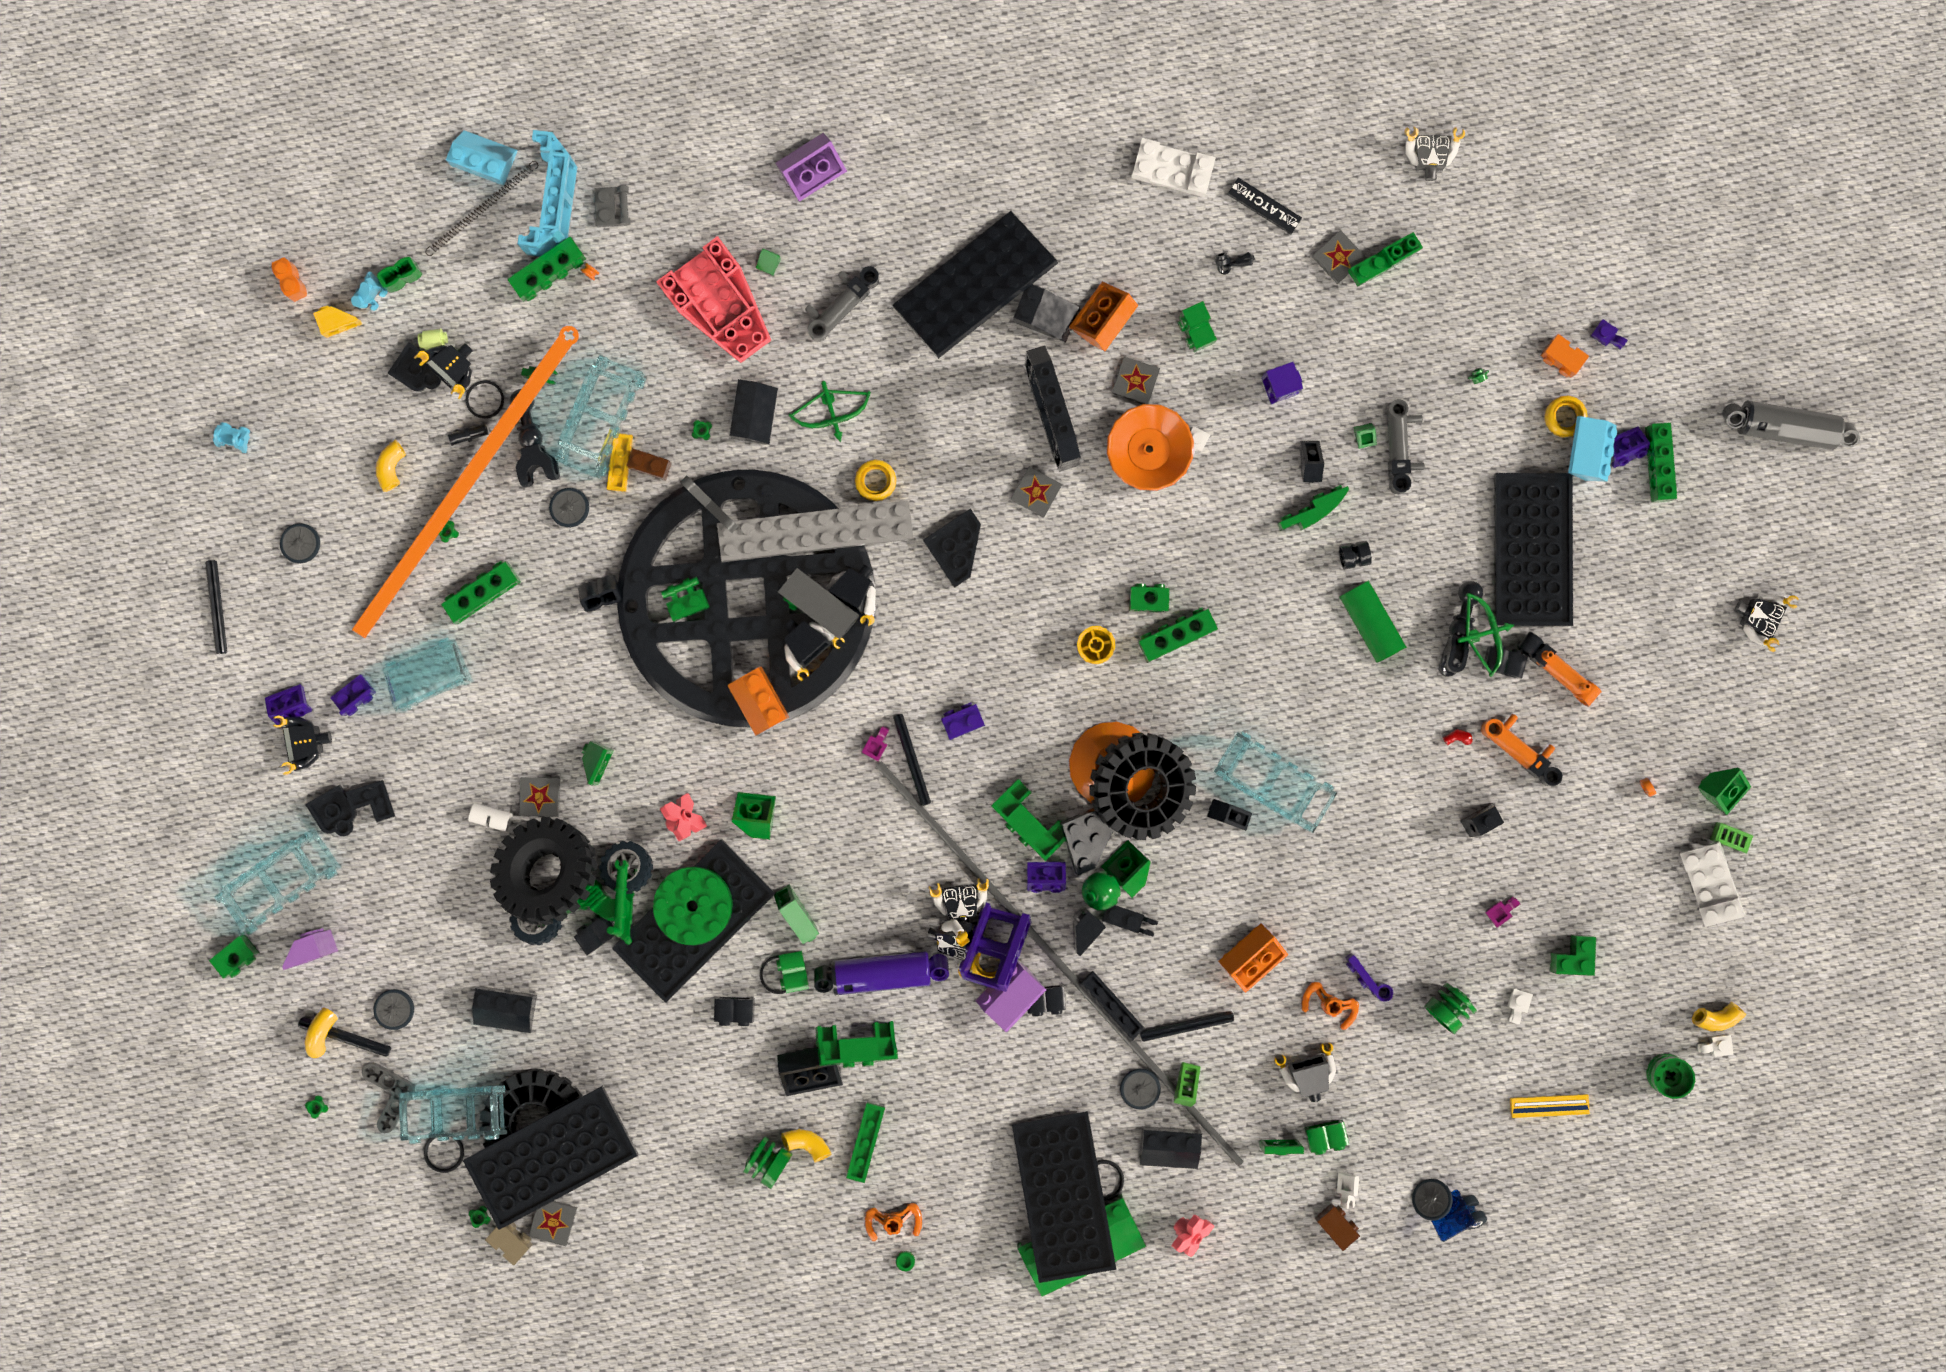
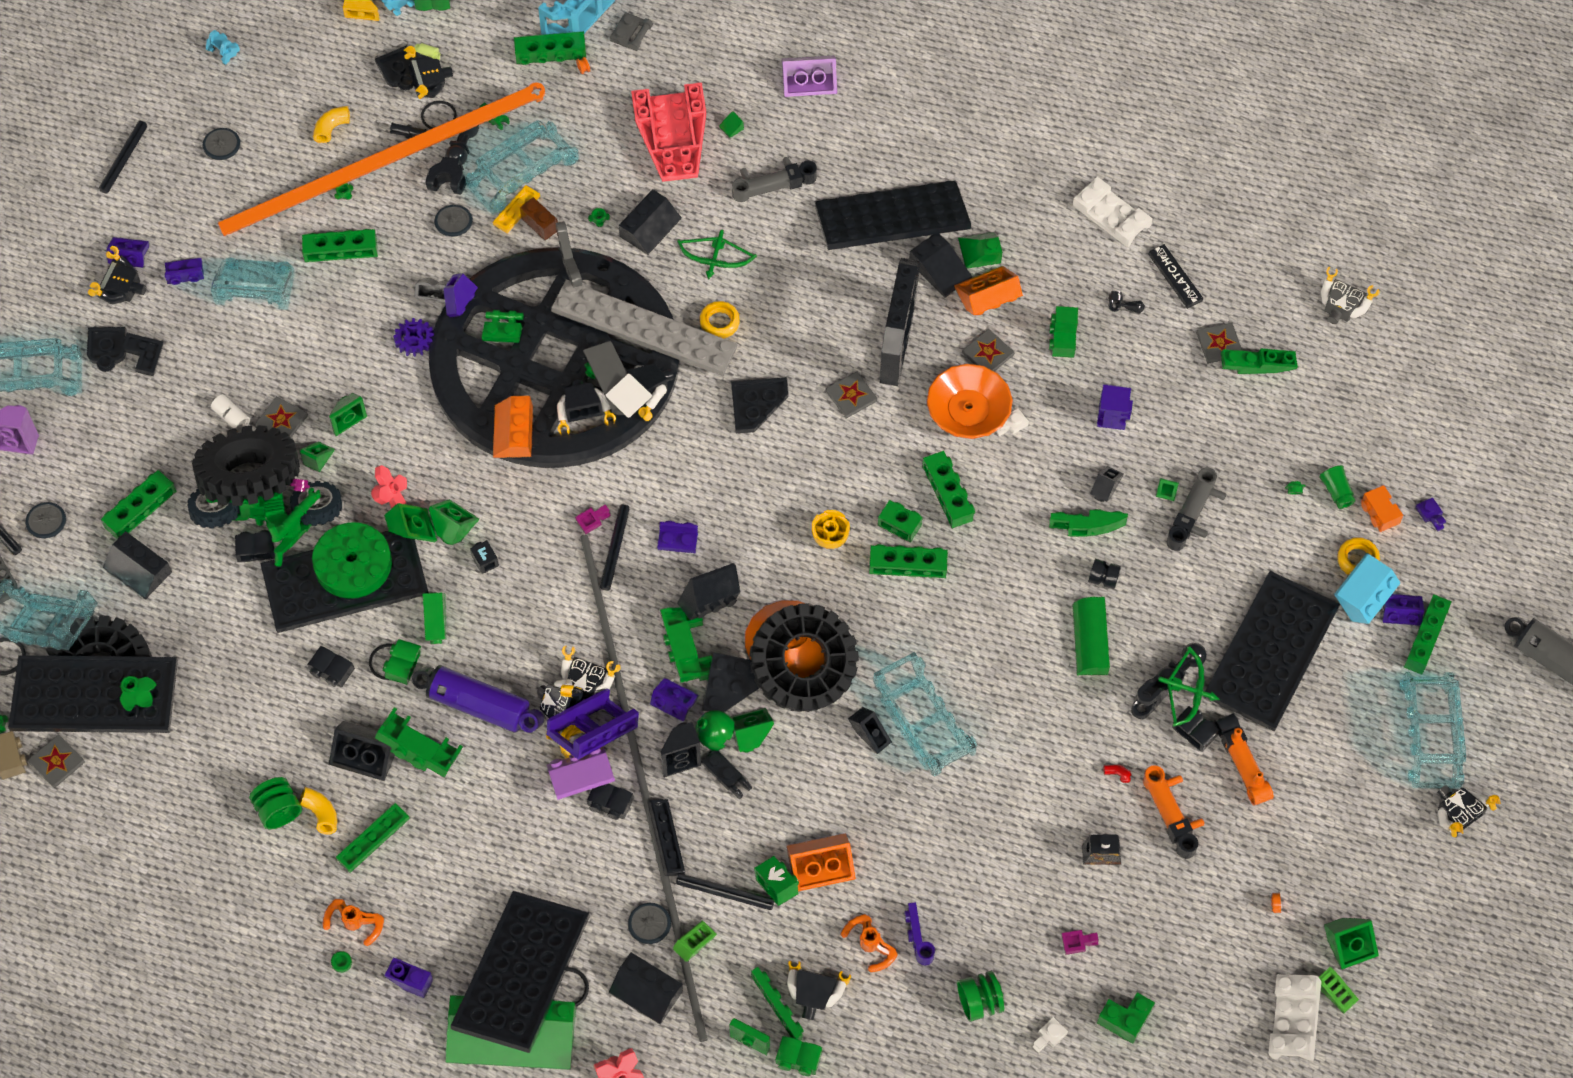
camera: 30 degrees right, 25 degrees down
(479, 924) = (136, 514): none -> green brick
(592, 1140) = (139, 694): none -> green plate
(594, 814) = (316, 455): none -> green slope
(605, 865) = (300, 485): none -> magenta plate
(607, 659) = (413, 337): none -> dark purple gear
(627, 593) = (458, 293): none -> dark purple slope
(724, 843) = (410, 522): none -> green slope
(803, 833) = (484, 556): none -> black brick
(847, 618) = (628, 395): none -> white sticker
(972, 1248) = (409, 977): none -> dark purple slope
(1028, 768) = (710, 592): none -> black slope
(1072, 273) = (980, 250): none -> green slope
(1202, 556) = (955, 514): none -> green brick
(1227, 997) = (776, 880): none -> green brick
(1279, 1099) = (773, 998): none -> green plate
(1517, 354) = (1338, 486): none -> green plant
(1728, 544) = (1455, 719): none -> clear light blue windscreen

